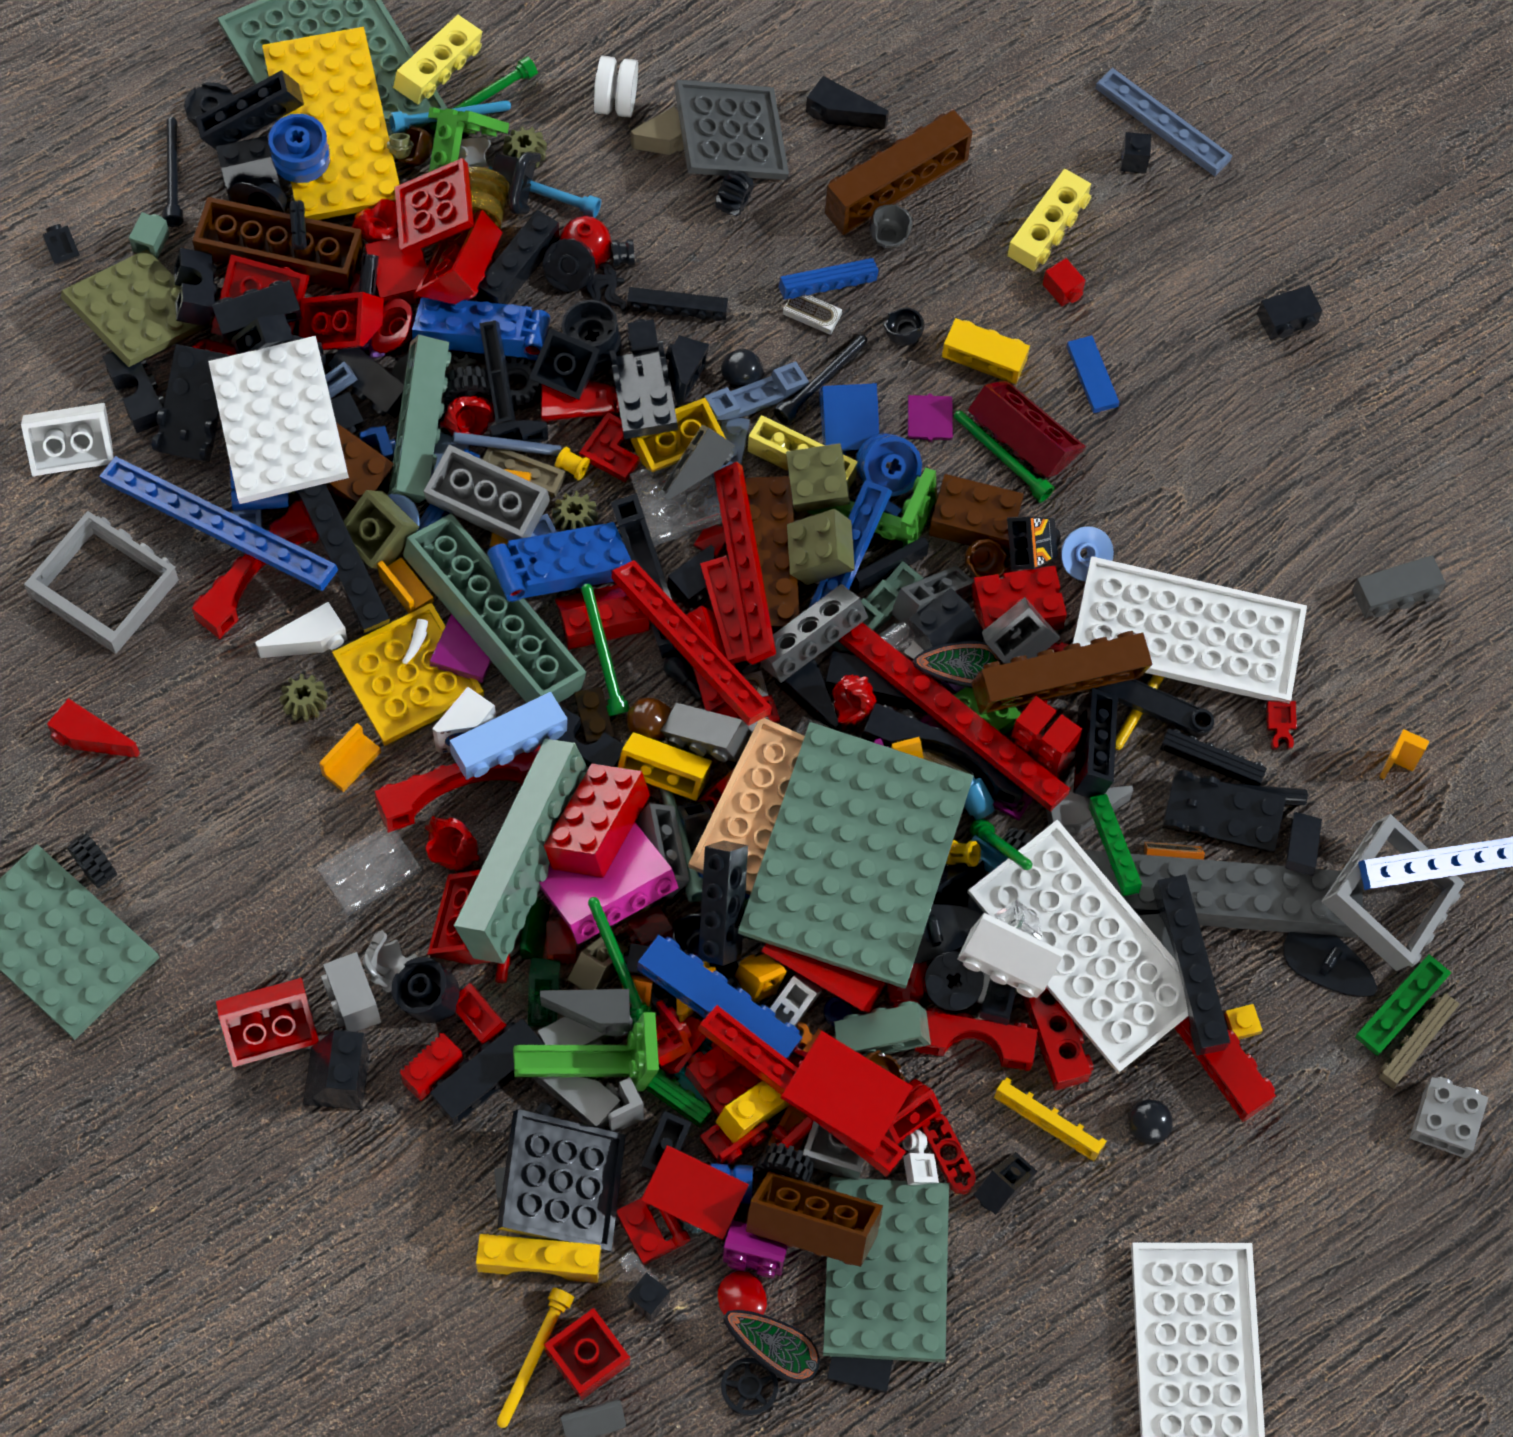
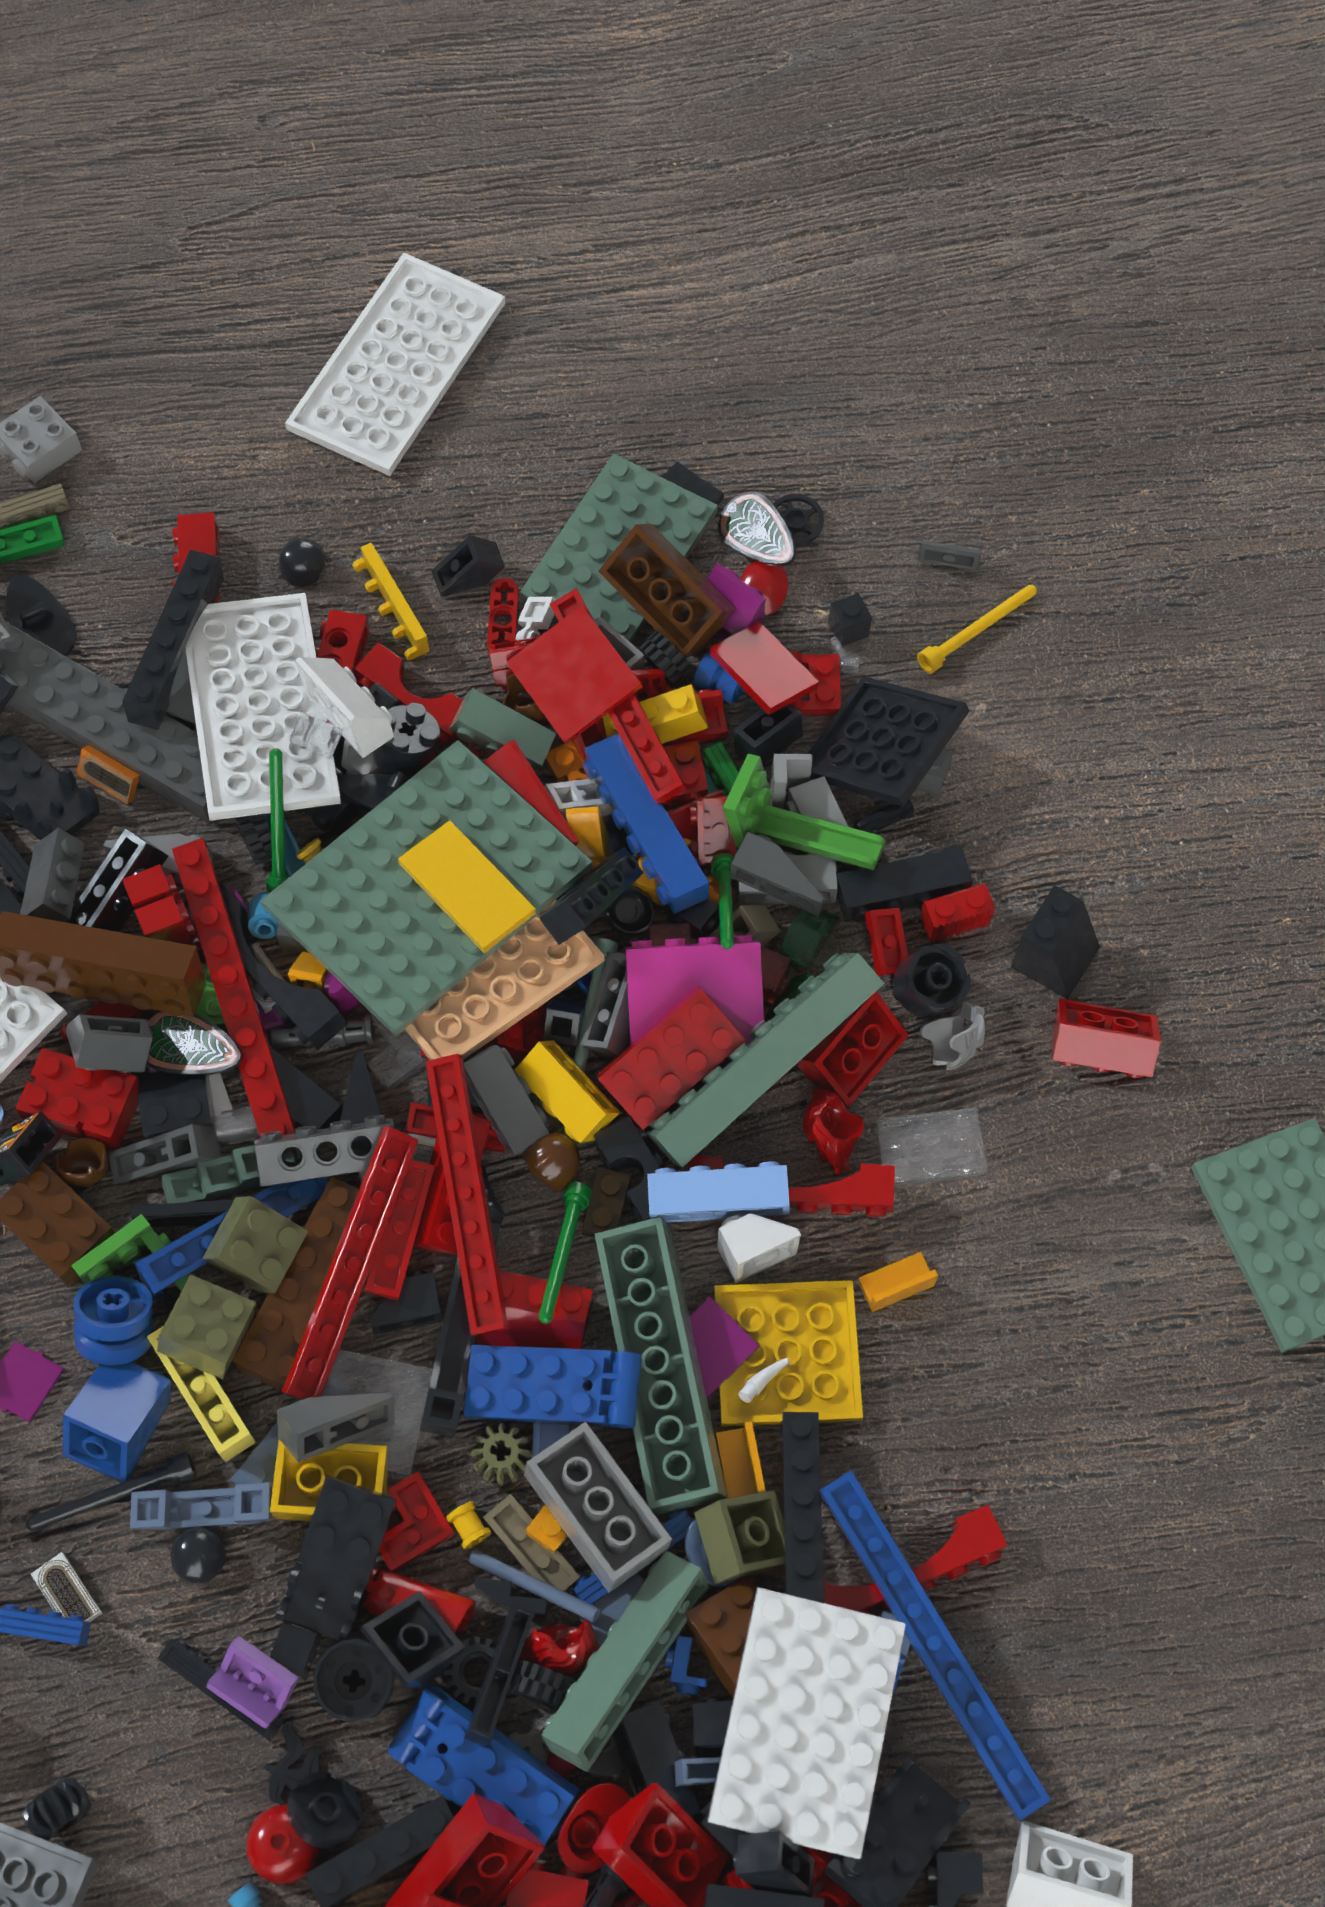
camera: 150 degrees left, 0 degrees up
(86, 732) = (1185, 1457): red slope -> none
(92, 860) = (1232, 1289): black tyre -> none
(113, 640) = (1148, 1619): light grey window -> none
(299, 690) = (916, 1365): olive gear -> none
(306, 635) = (879, 1453): white slope -> none
(350, 989) = (1010, 1012): light grey brick -> none
(517, 1254) = (907, 672): yellow arch -> none
(587, 1354) = (931, 595): red brick -> none
(623, 252) = (245, 1799): black wheel -> none
(655, 301) = (253, 1682): none -> medium lavender bracket
(685, 365) = (263, 1581): black slope -> none
(711, 536) = (362, 1342): red slope -> none
(821, 853) = (467, 886): none -> yellow tile
(853, 699) = (328, 1058): red hair -> none
(1115, 845) = (165, 782): green piece -> none
(1149, 737) = (53, 877): none -> dark grey brick
(1243, 1021) = (152, 602): yellow plate -> none

